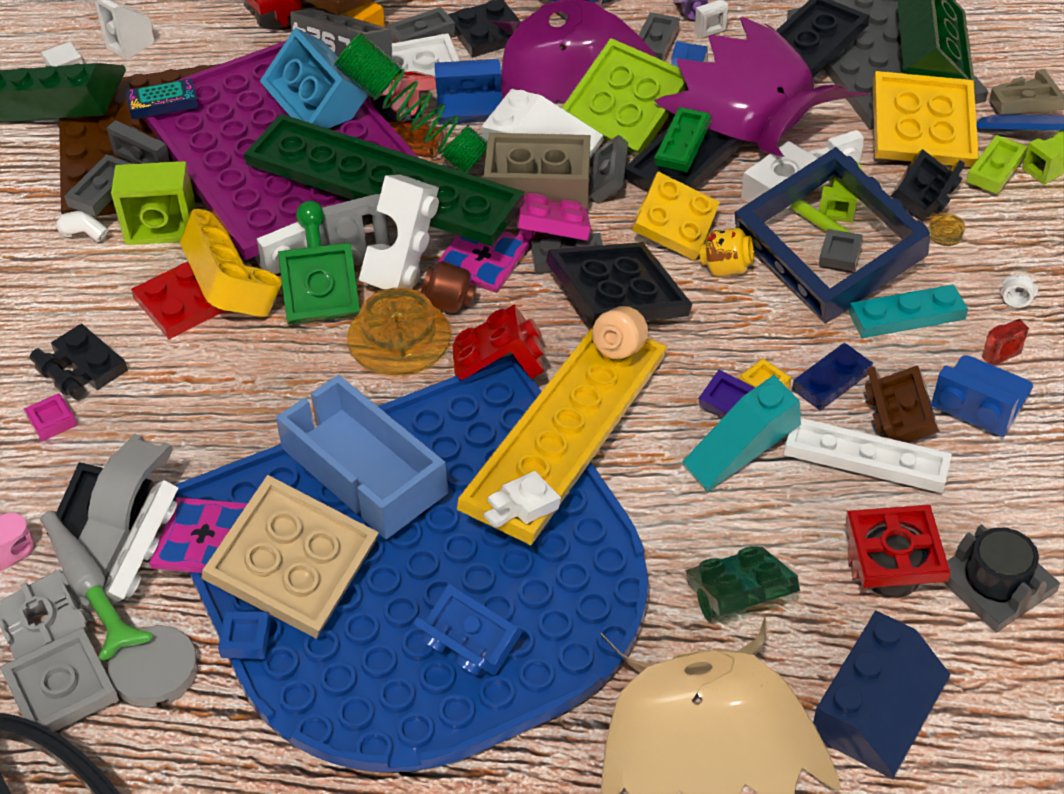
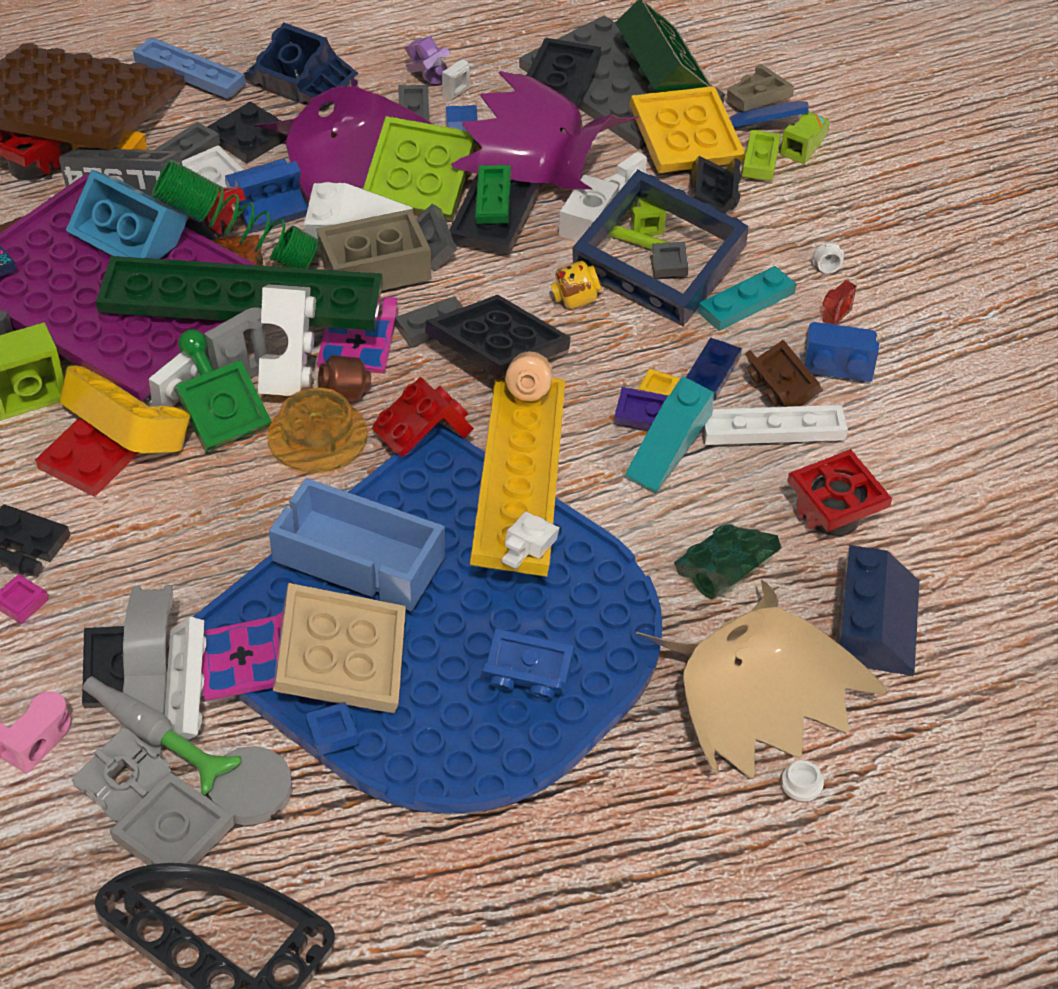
camera: 25 degrees left, 0 degrees up
(552, 217) = (414, 291): dark pink plate -> none
(675, 216) = (515, 264): yellow plate -> none
(946, 229) = (749, 217): clear yellow tile -> none
(1003, 568) = (923, 483): piece -> none

